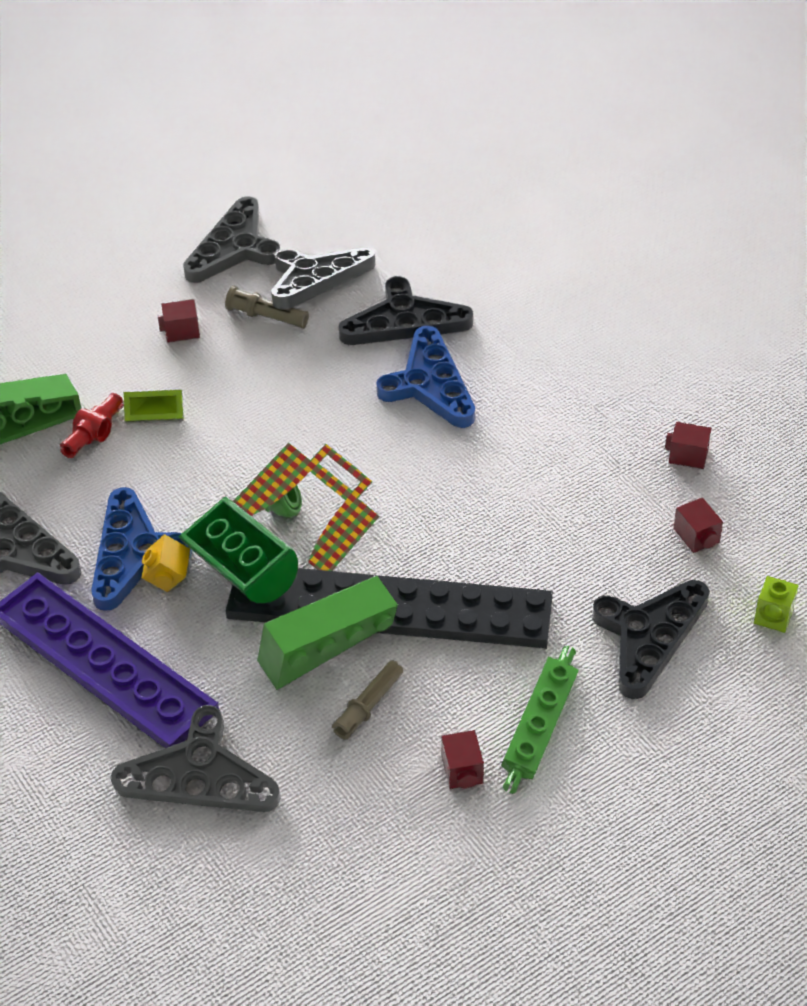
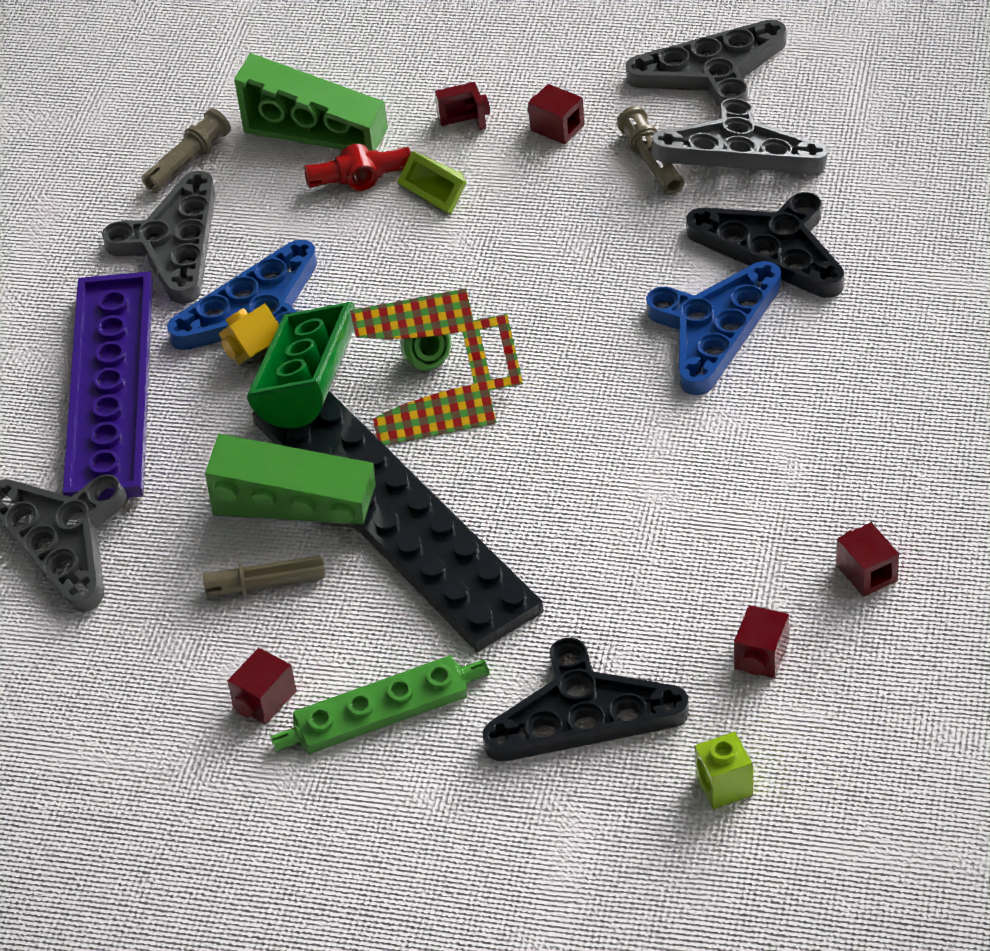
camera: 50 degrees right, 0 degrees up
(111, 348) = (462, 104): none -> dark red bracket

